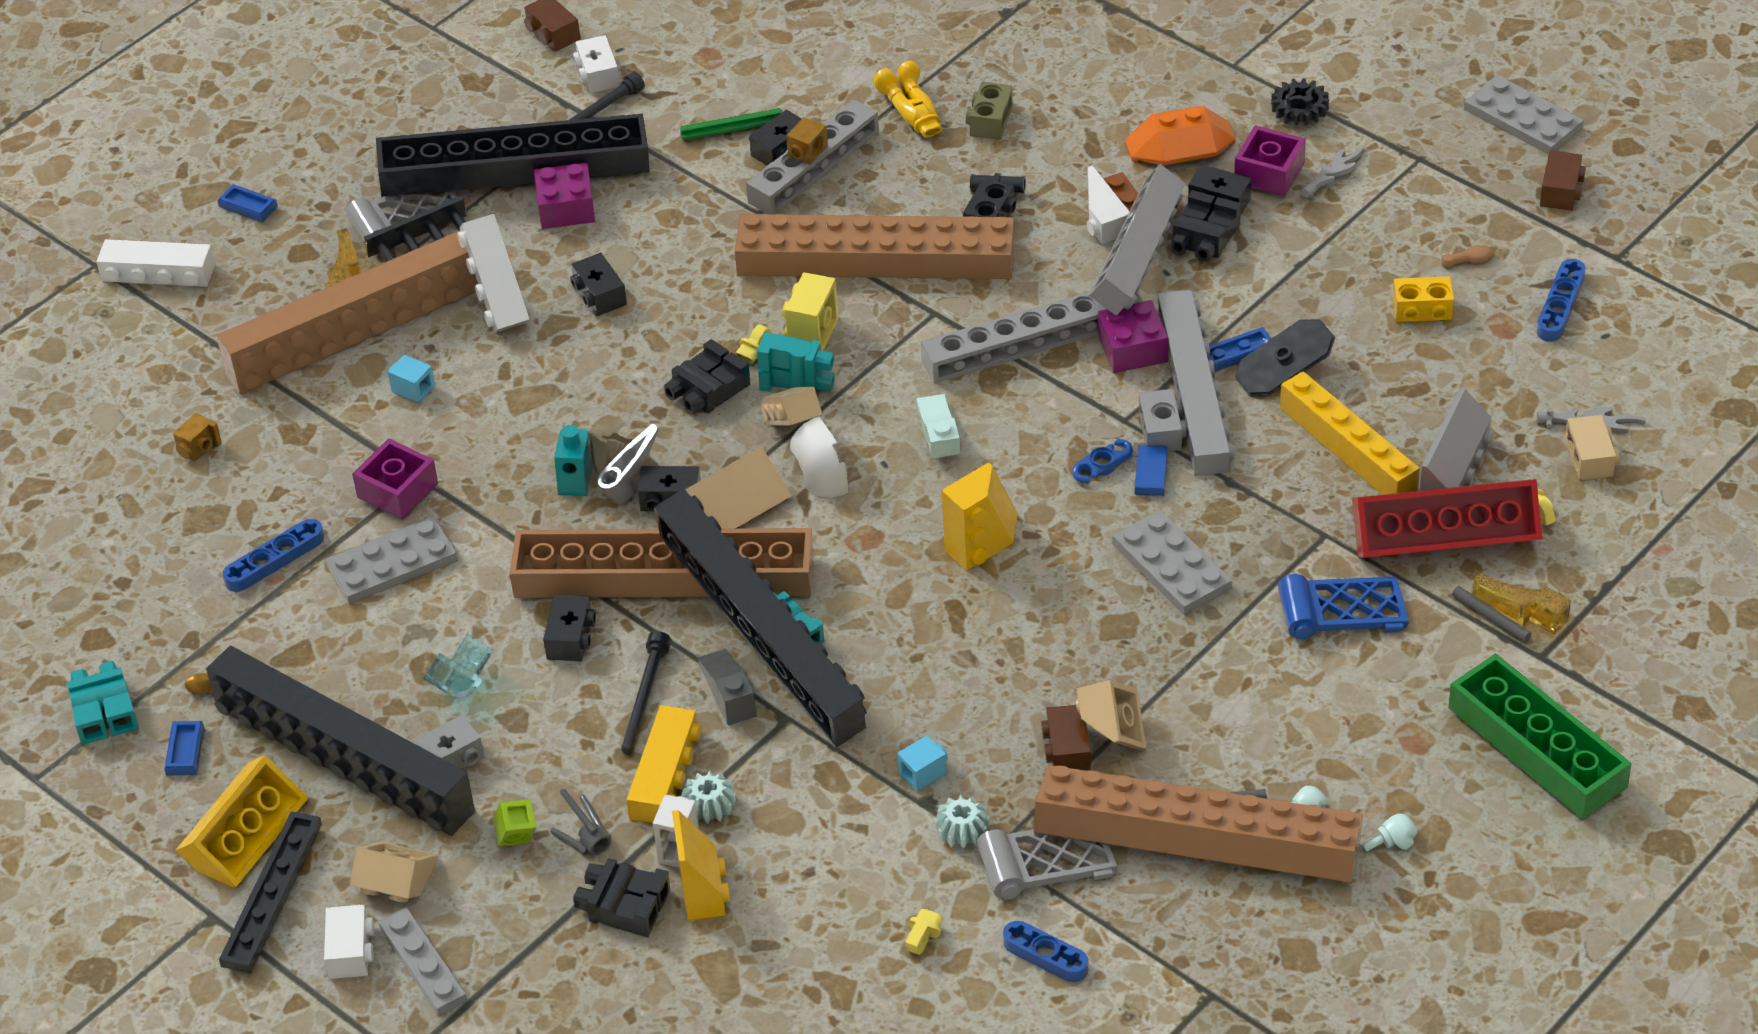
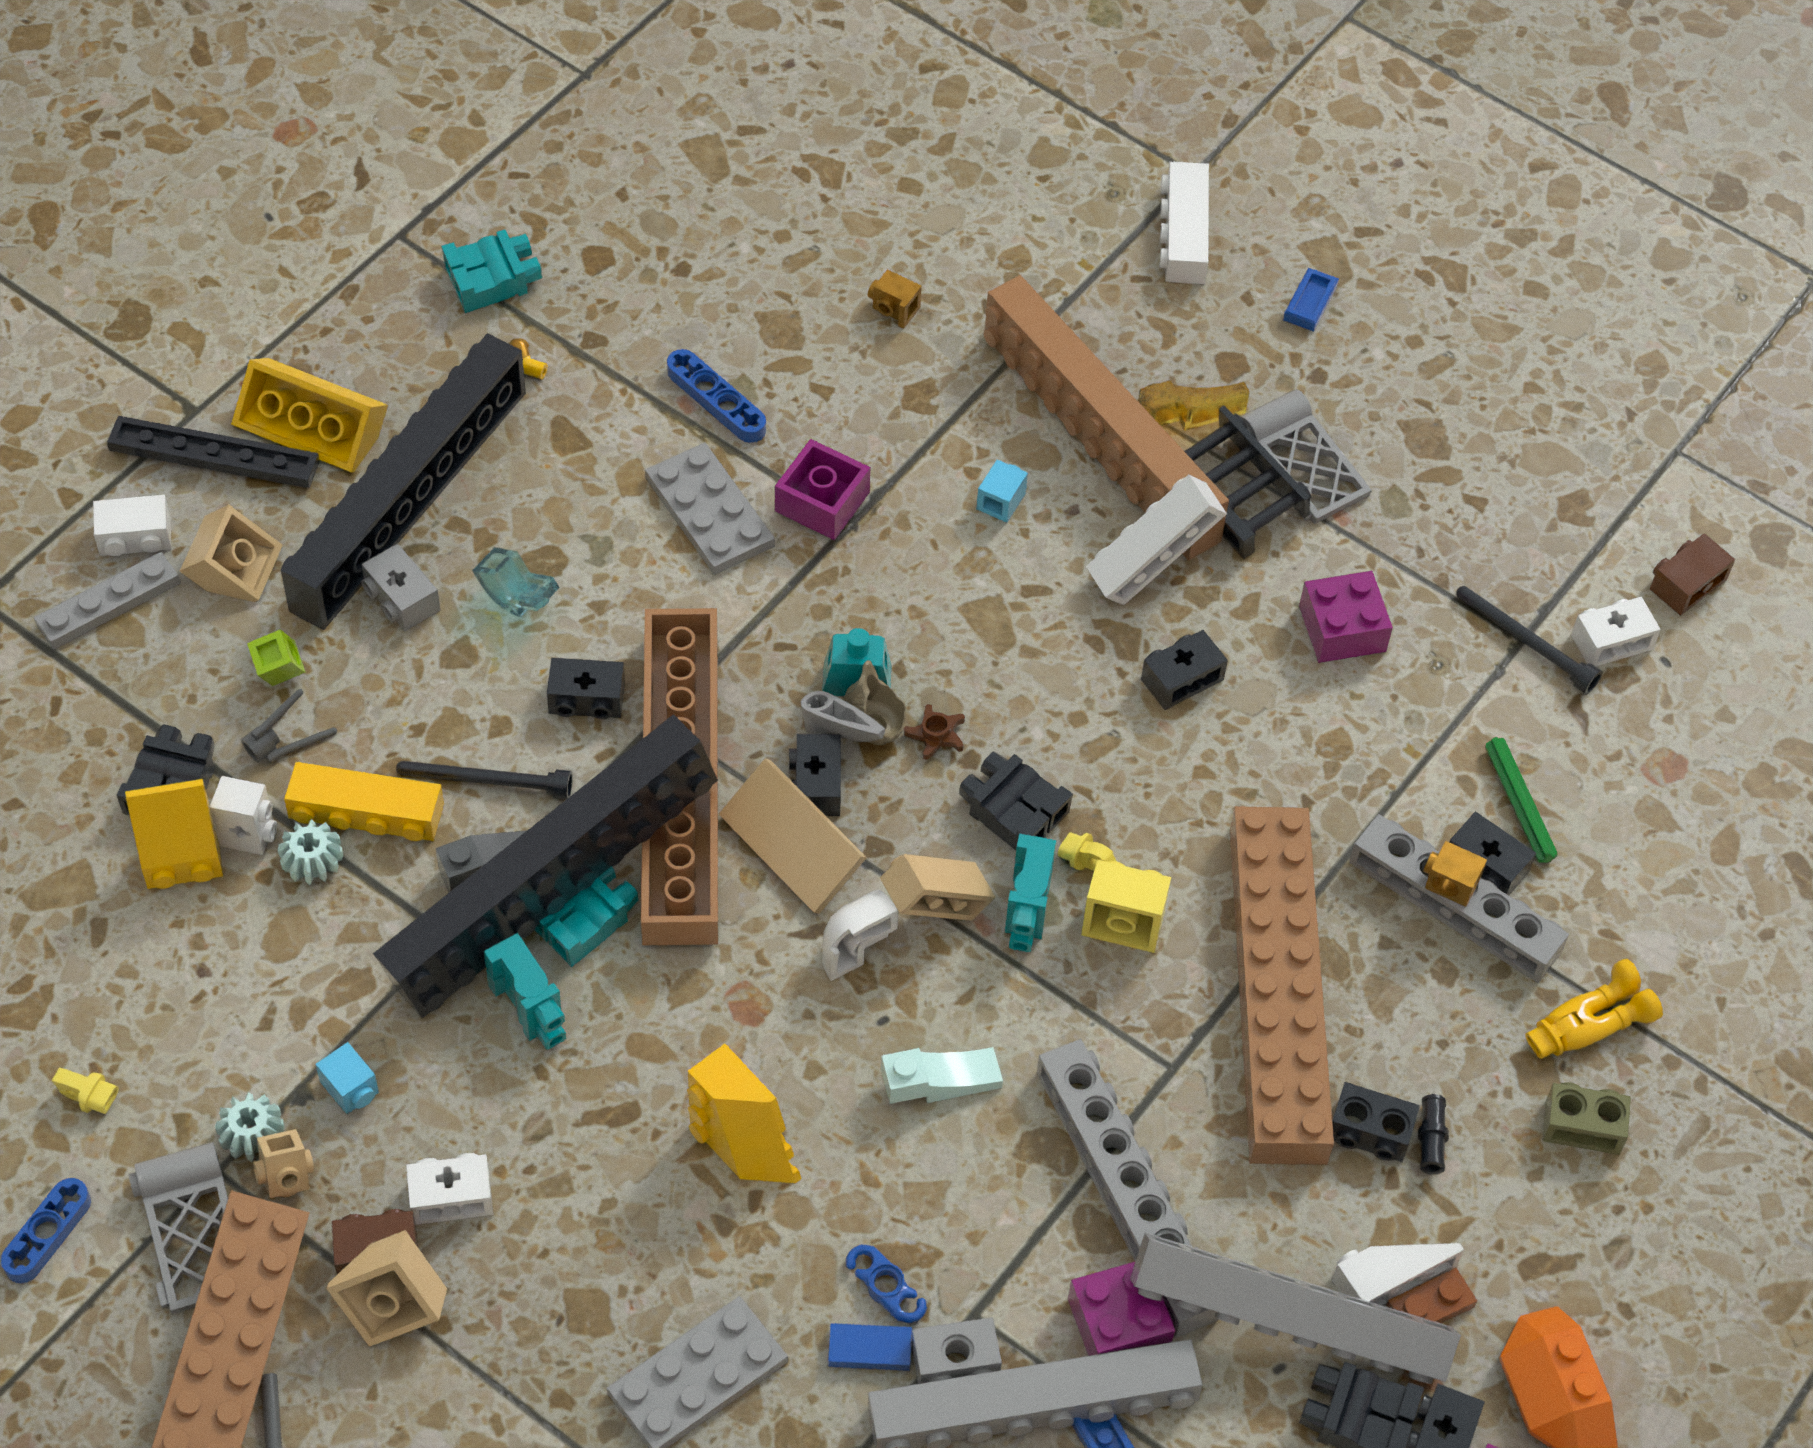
camera: 80 degrees right, 10 degrees up
(184, 748) = (429, 353): blue tile -> none
(509, 154) = (1405, 551): black brick -> none
(632, 423) = (936, 731): none -> reddish brown animal
(862, 643) = (518, 974): none -> teal hips
(1000, 791) = (283, 1164): none -> tan brick
(1022, 697) = (436, 1203): none -> white brick

